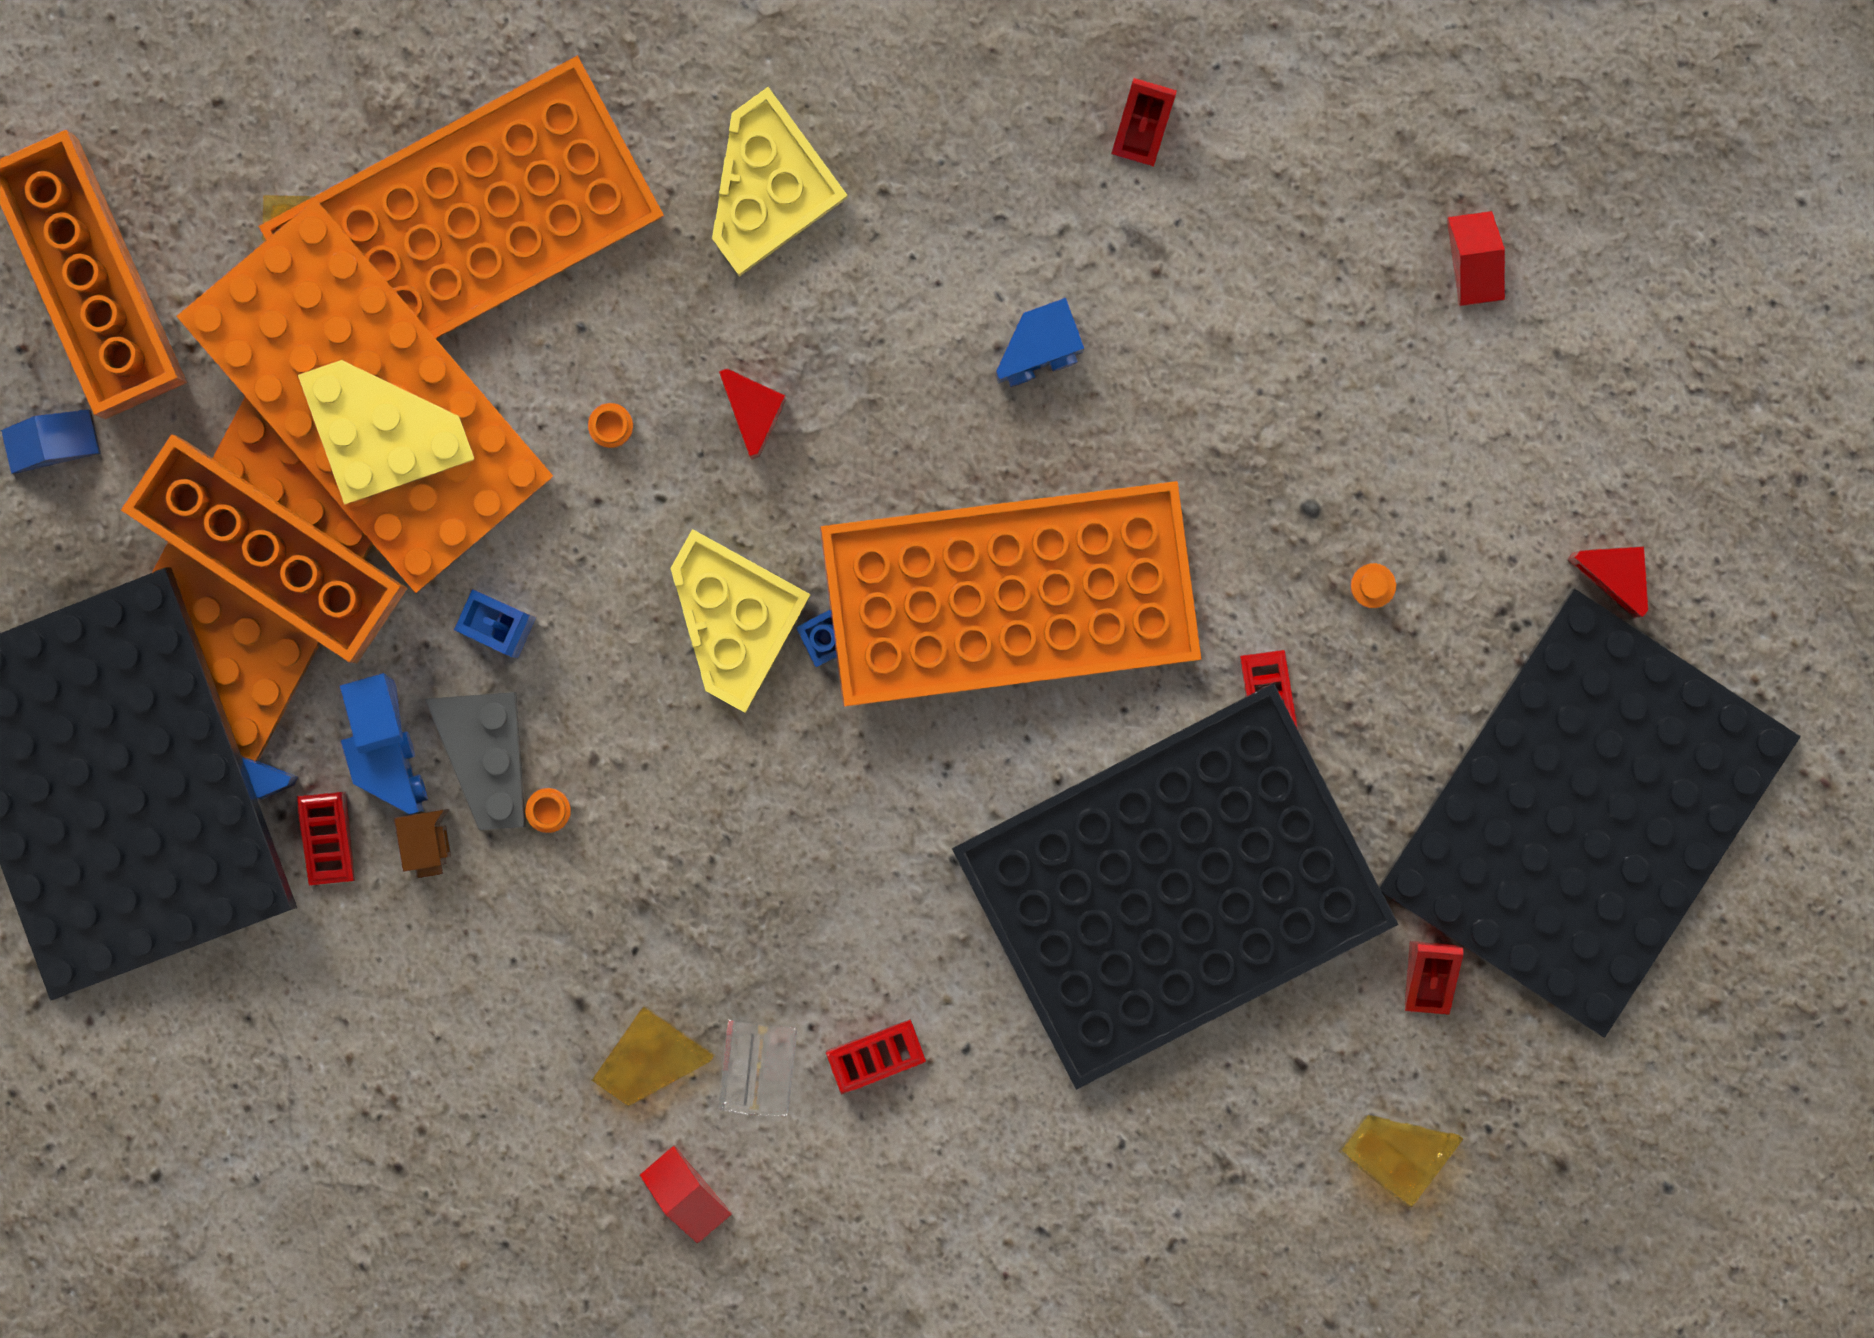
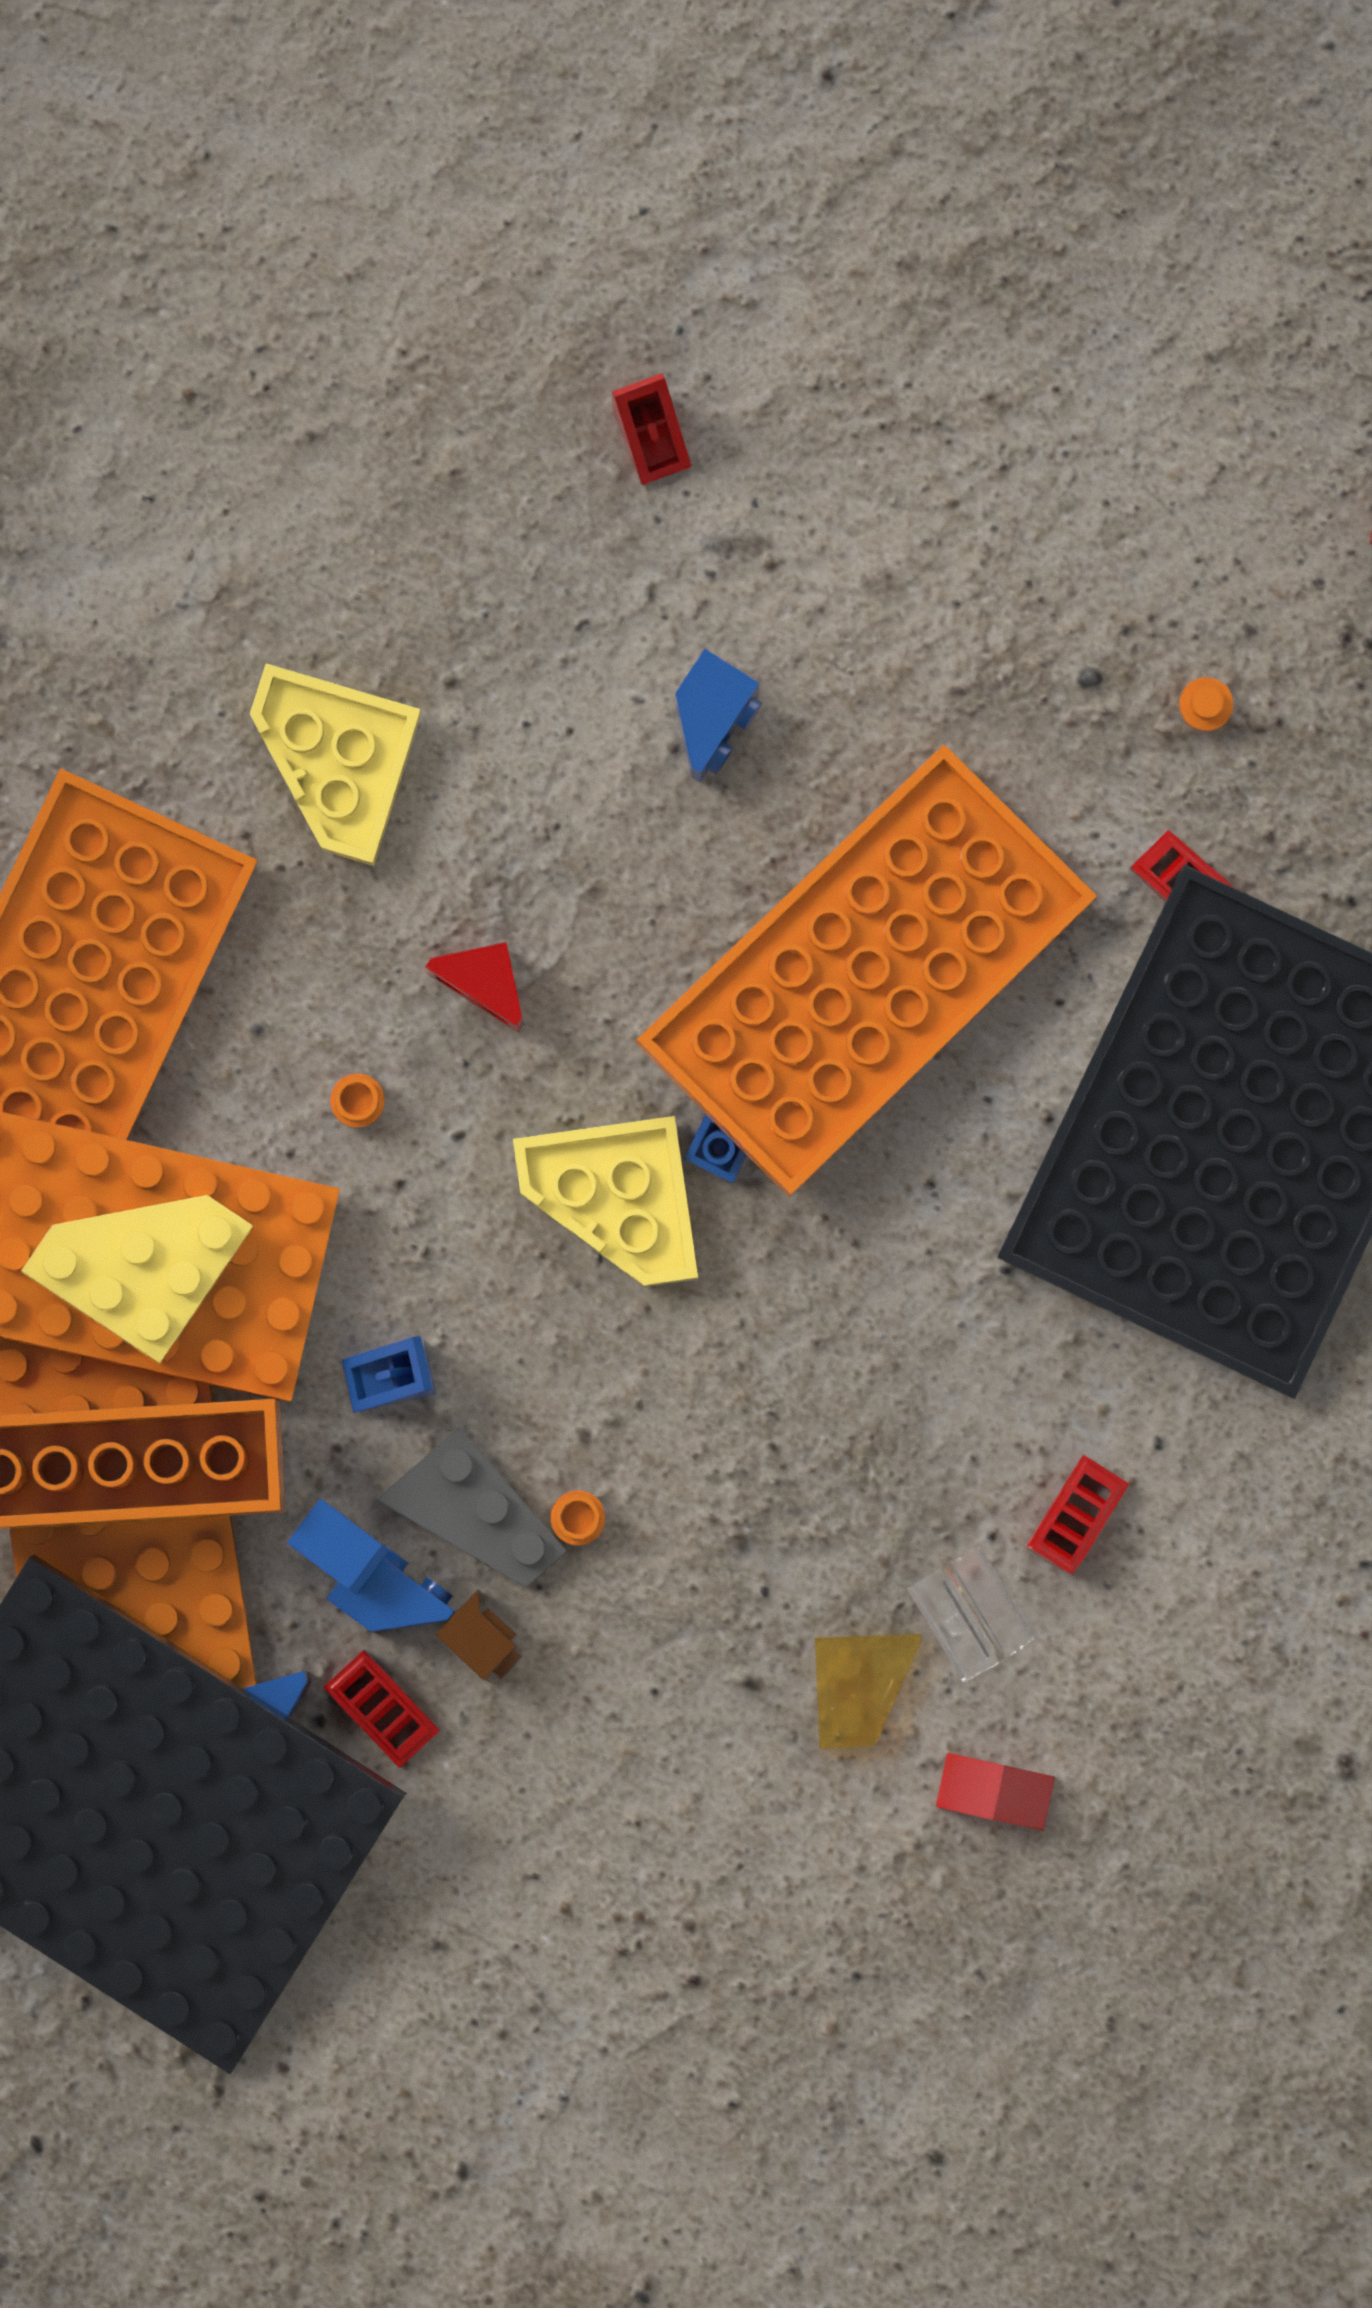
camera: 30 degrees left, 5 degrees down
(1477, 258) = (1066, 323): red slope -> none

